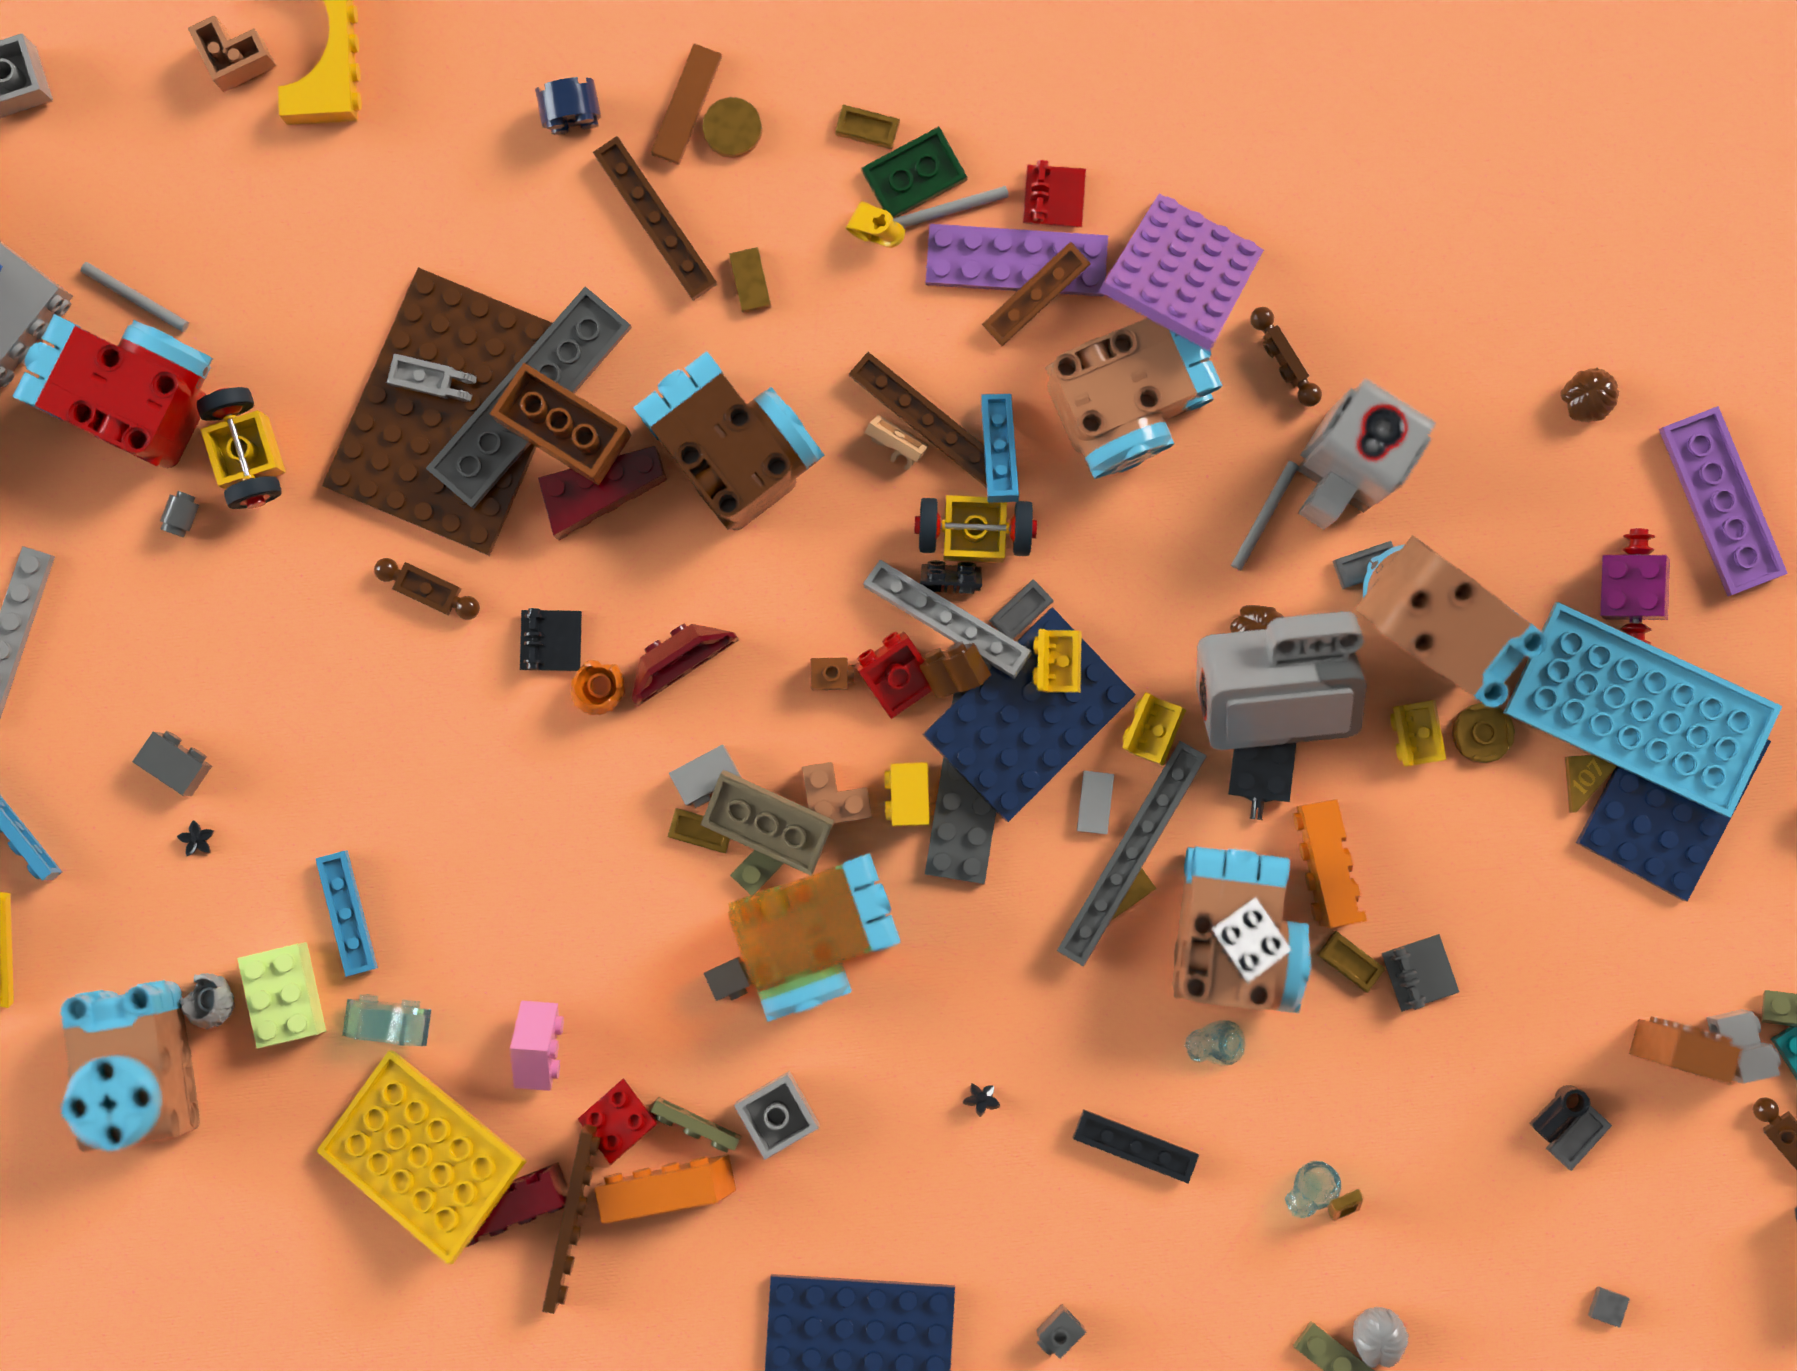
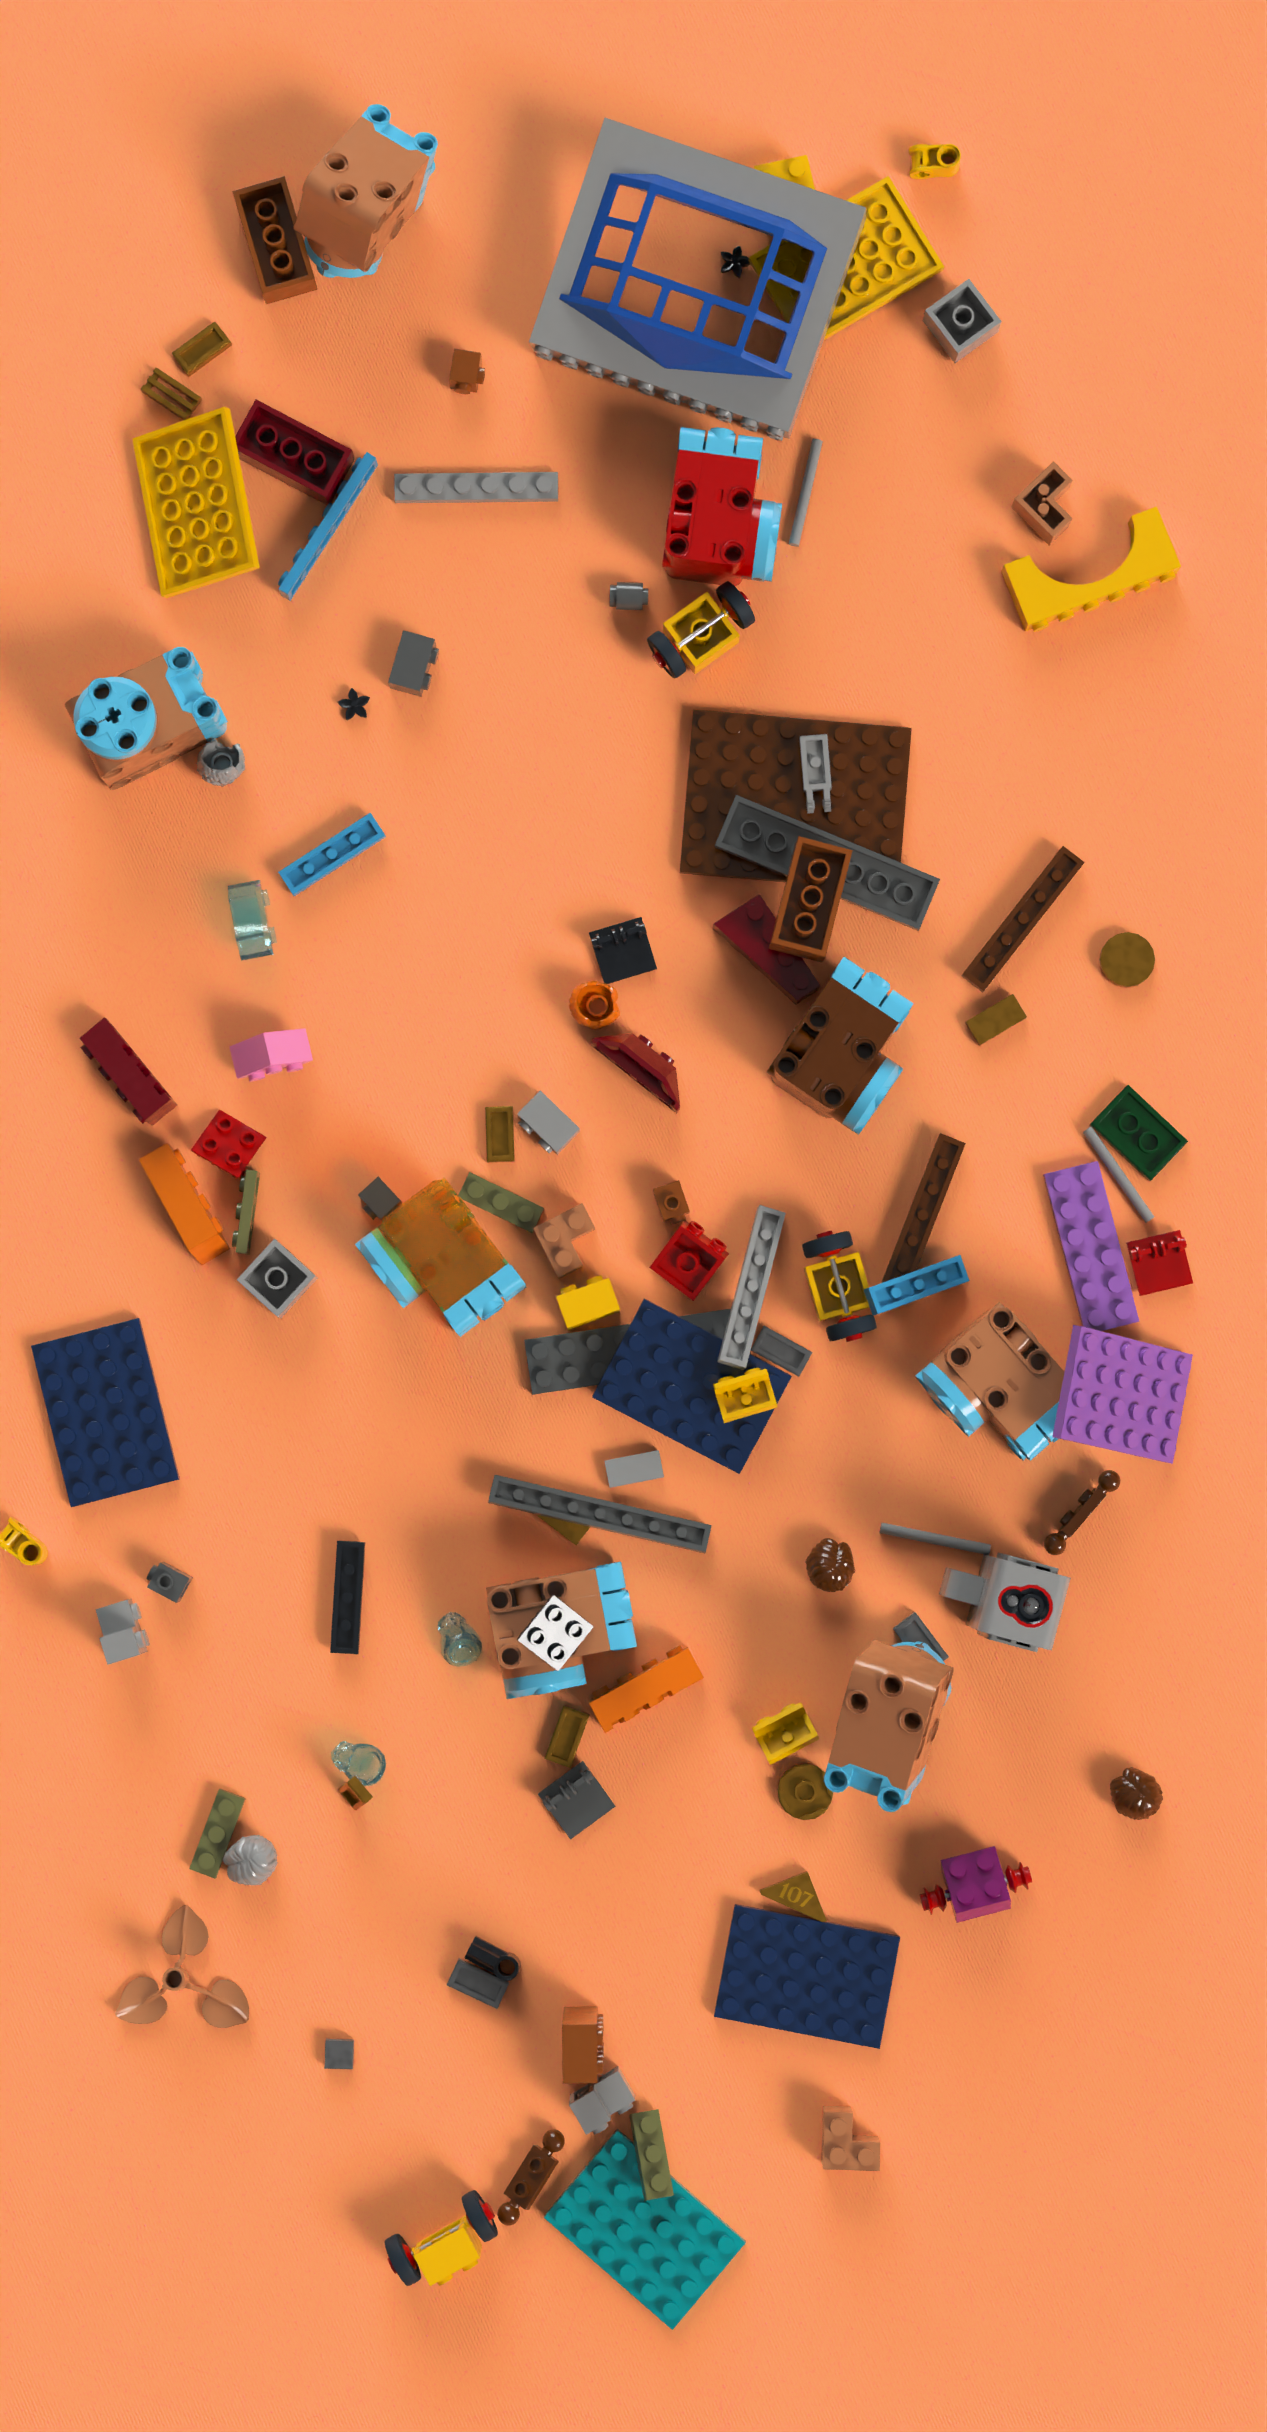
camera: 70 degrees right, 0 degrees up
(281, 995) = (245, 823): yellowish green brick -> none
(421, 1157) = (147, 987): yellow plate -> none
(426, 588) = (633, 829): reddish brown plate -> none
(568, 104) = (1097, 811): dark blue brick -> none
(574, 1206) = (146, 1131): reddish brown plate -> none
(686, 104) = (1134, 912): dark orange tile -> none
(767, 822) = (524, 1189): dark tan plate -> none
(867, 127) = (1167, 1078): pearl gold tile -> none
(875, 226) = (1078, 1114): yellow piece -> none
(888, 434) = (898, 1185): light nougat plate -> none
(954, 669) = (708, 1307): reddish brown brick -> none
(964, 575) = (788, 1268): black hinge -> none
(982, 1099) = (346, 1451): black plant -> none
(1036, 293) = (1064, 1274): dark orange tile -> none
(1153, 728) = (714, 1498): yellow bracket -> none
(1262, 774) = (711, 1605): black plate -> none
(1282, 682) = (787, 1594): light grey piece -> none
(1643, 710) = (869, 1923): medium azure plate -> none
(1723, 501) = (1080, 1942): medium lavender plate -> none

